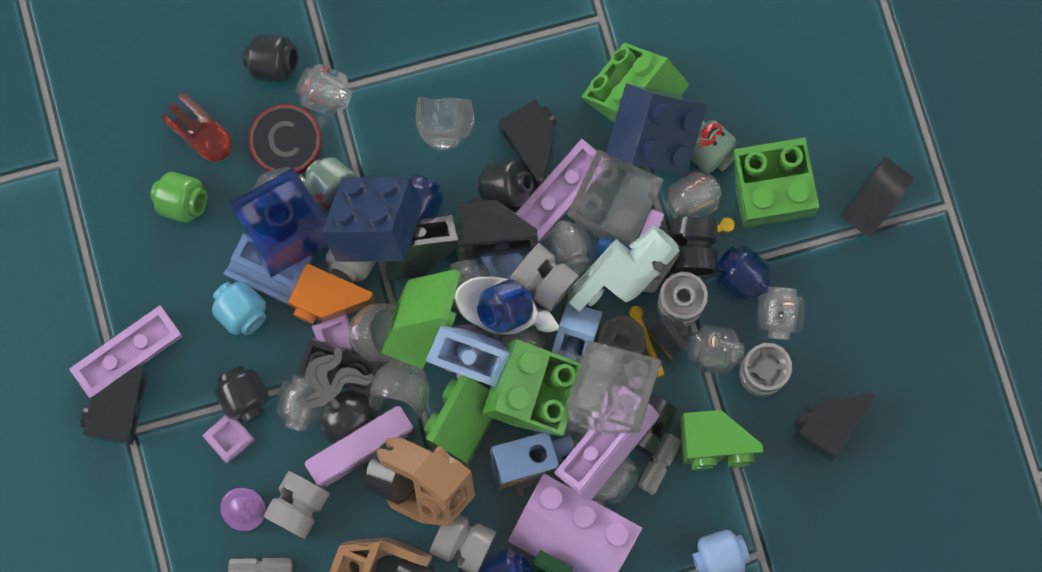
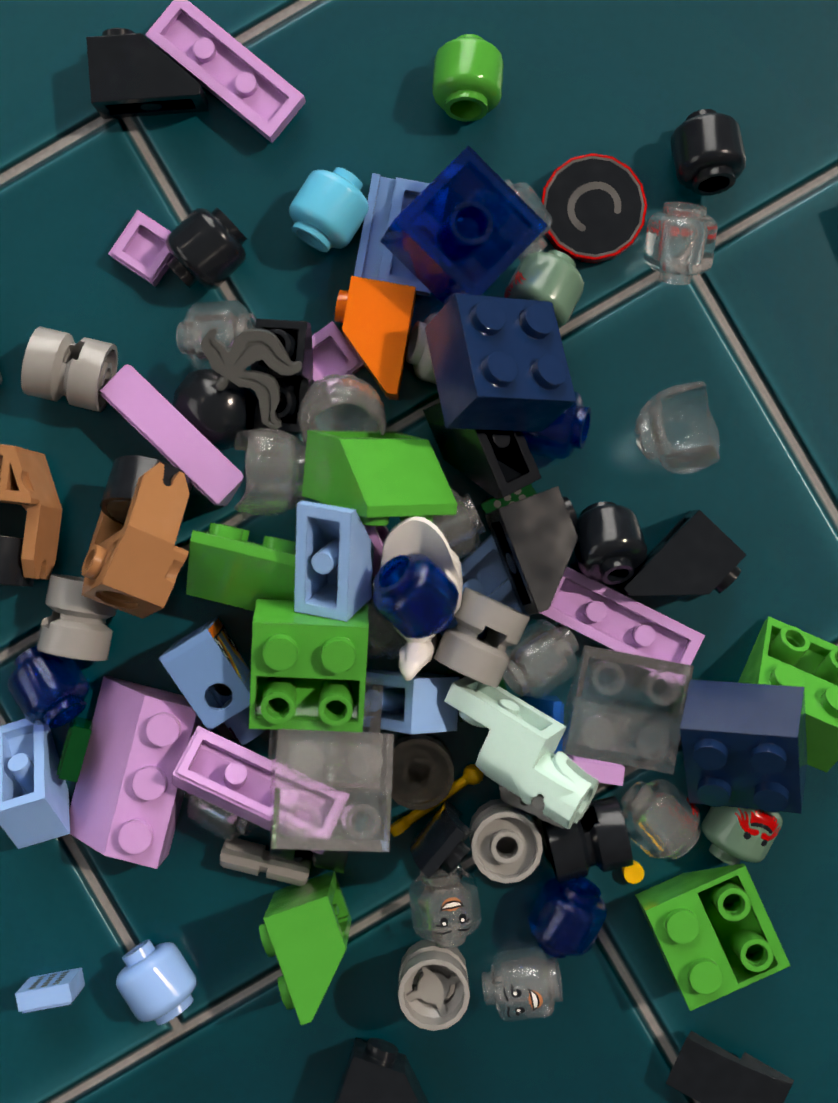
camera: 75 degrees right, 10 degrees up
(203, 134) = (575, 77): clear red arm -> none
(243, 509) = (49, 296): medium lavender hat -> none

